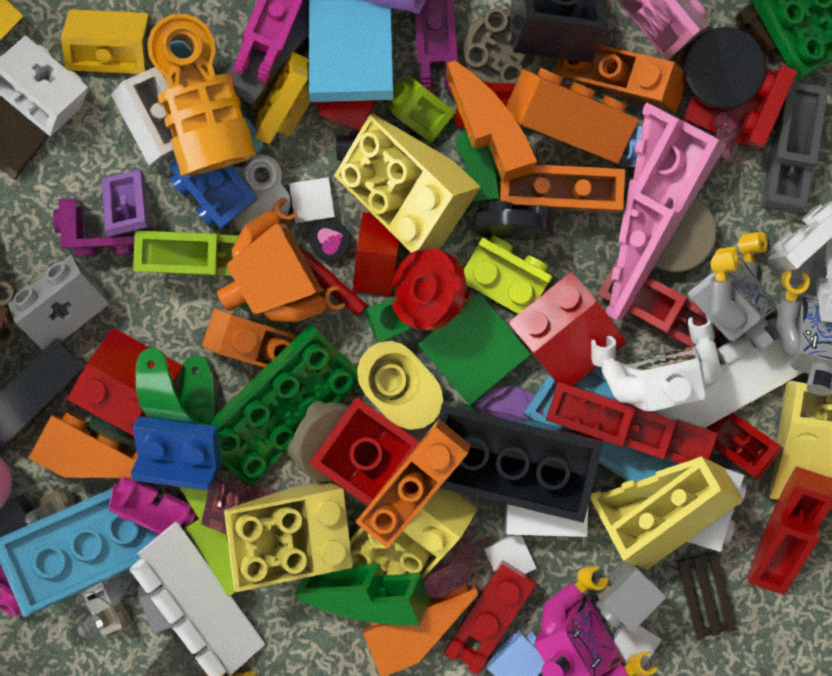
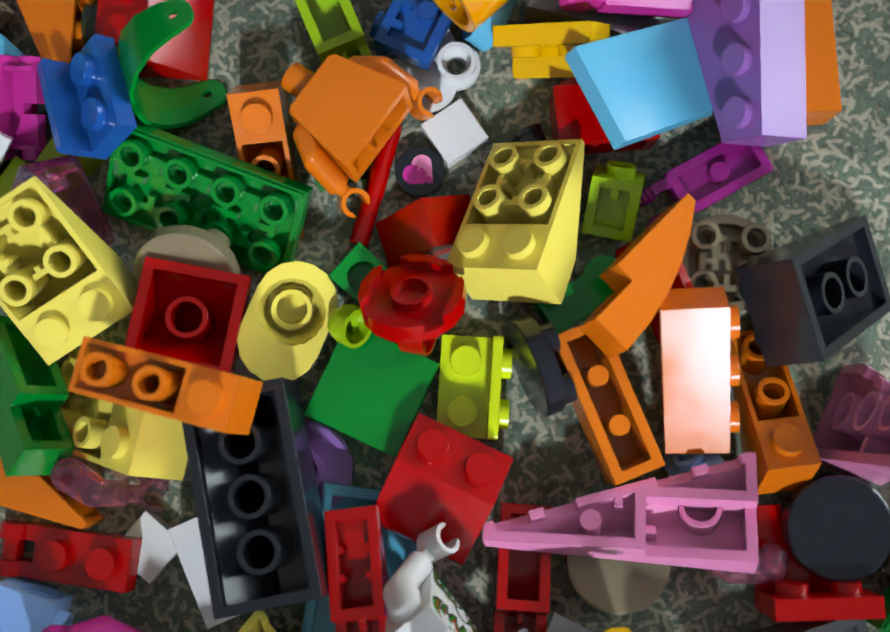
camera: 70 degrees right, 5 degrees down
(423, 343) = (350, 320): none -> lime hinge

